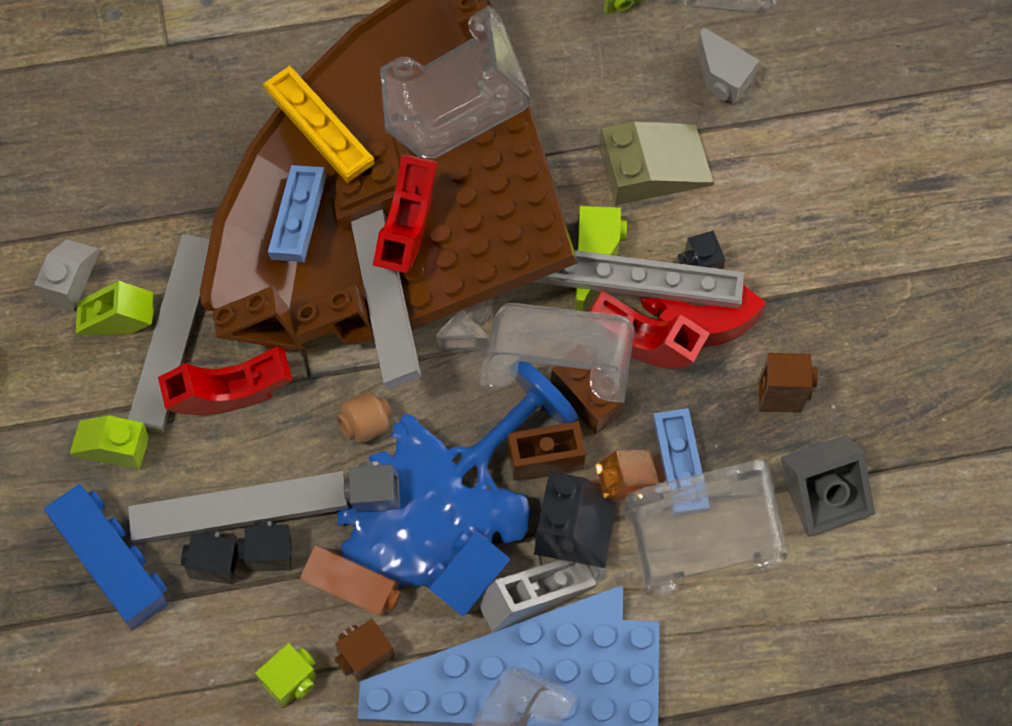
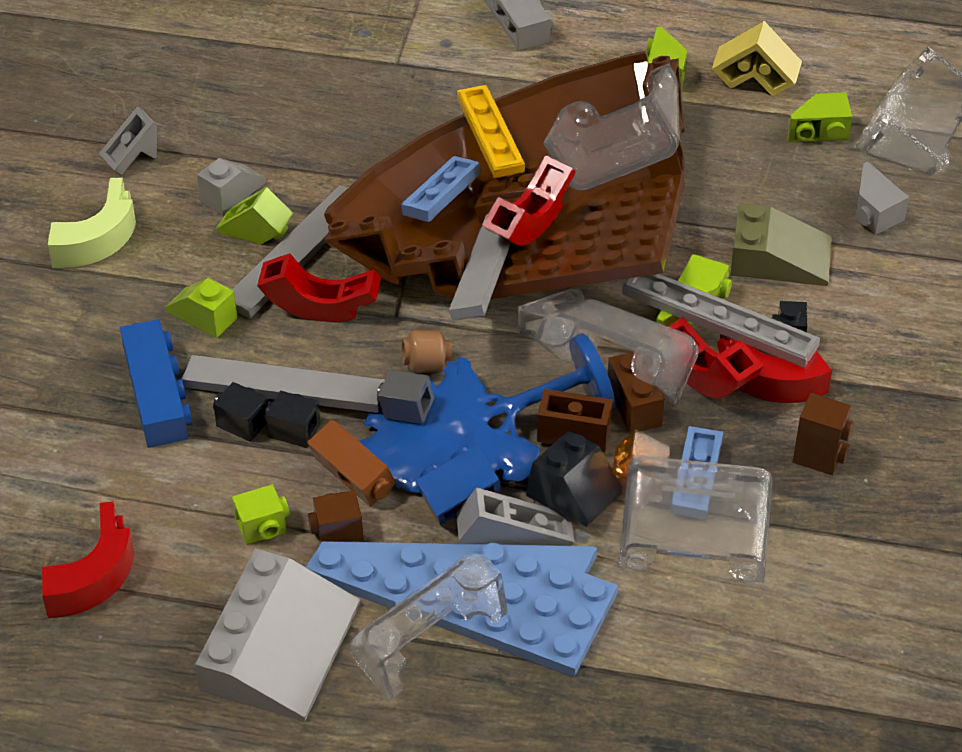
camera: 25 degrees right, 20 degrees down
(829, 484) = (830, 532): dark grey slope -> none

